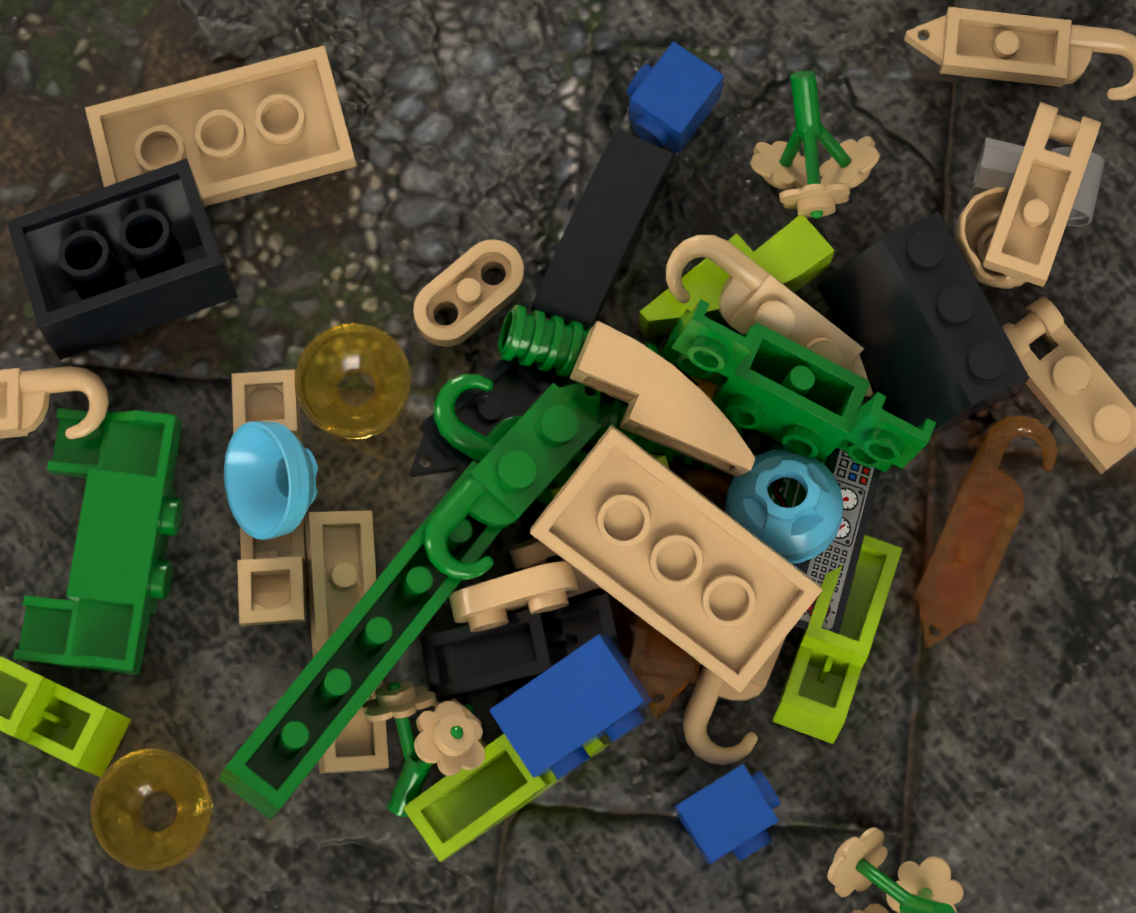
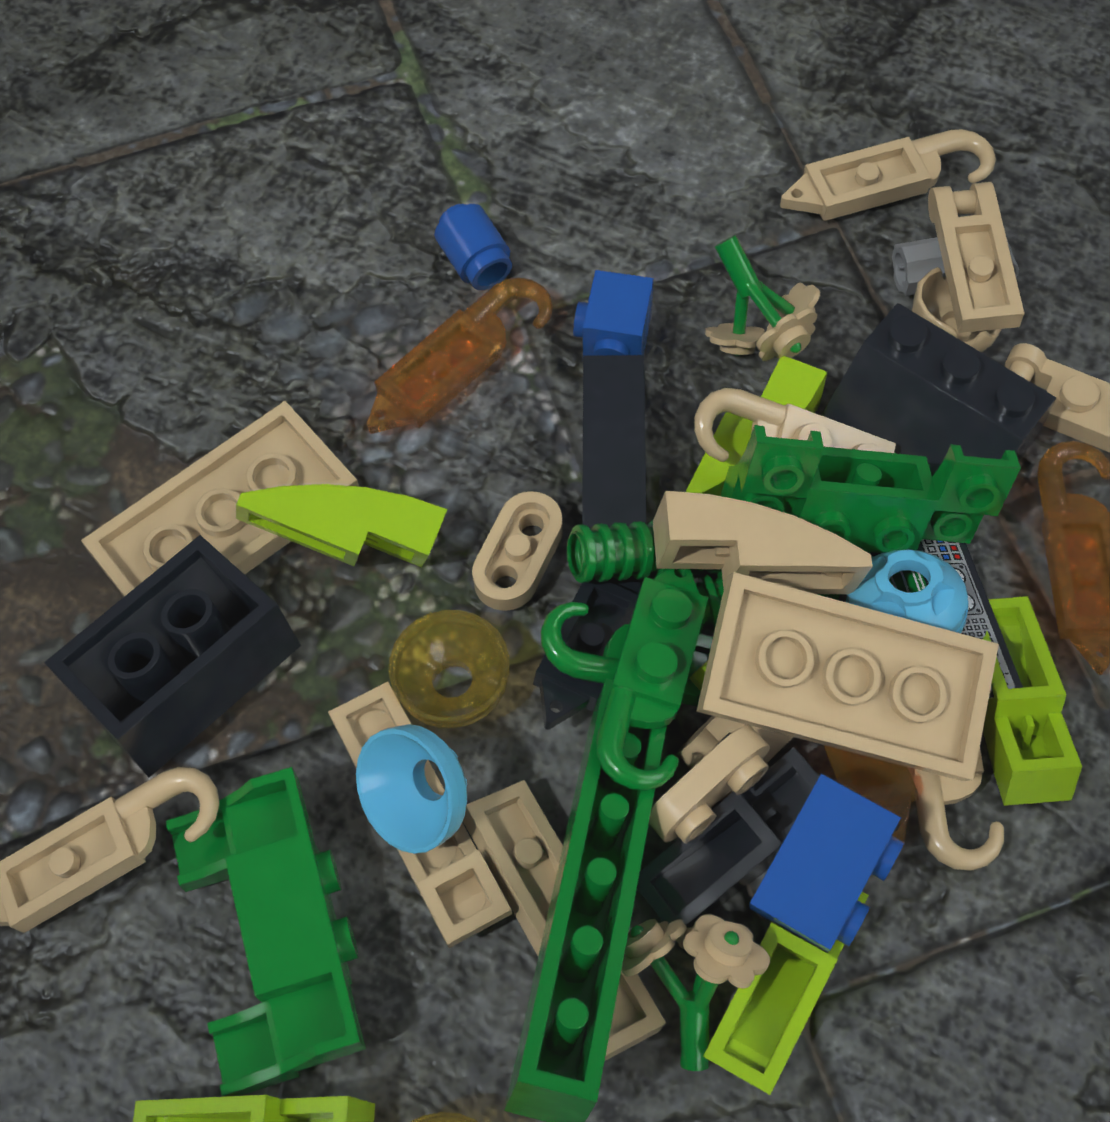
camera: 25 degrees left, 15 degrees down
(321, 199) = (343, 518): none -> lime slope
(503, 64) = (451, 357): none -> clear orange plate
(730, 815) = (1022, 911): blue brick -> none

